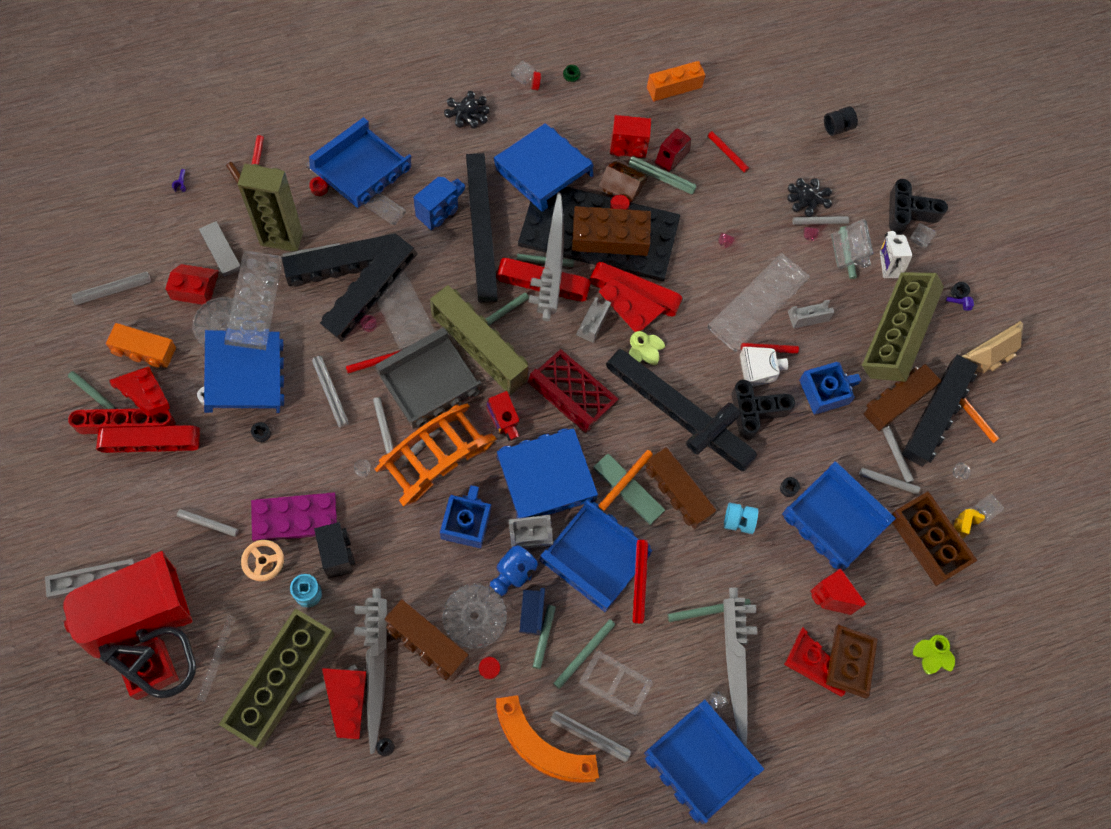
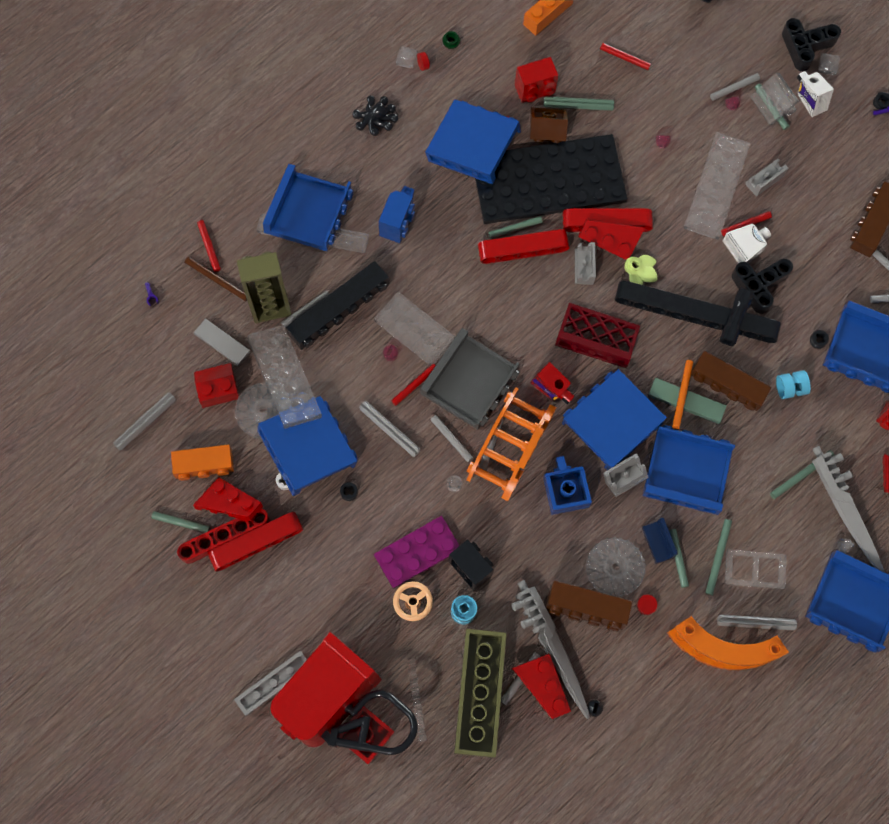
camera: 20 degrees left, 5 degrees up
(207, 523) = (345, 590): light grey bar -> none
(318, 186) = (279, 245): red tile -> none
(368, 287) = (378, 321): black brick -> none
(479, 339) = (498, 325): olive brick -> none
(481, 228) = (445, 221): black beam -> none
(507, 308) = (501, 291): sand green bar -> none
(514, 569) = (628, 513): blue piece -> none
(551, 274) = (529, 231): light grey piece -> none
(611, 231) = (563, 176): reddish brown brick -> none
(619, 202) = (557, 148): red tile -> none
(640, 581) = (737, 475): red axle -> none
(676, 145) = (579, 72): dark red torso -> none
(808, 196) = (714, 68): black animal -> none
(828, 387) = (812, 238): blue hinge -> none
(903, 326) = (851, 155): olive brick -> none

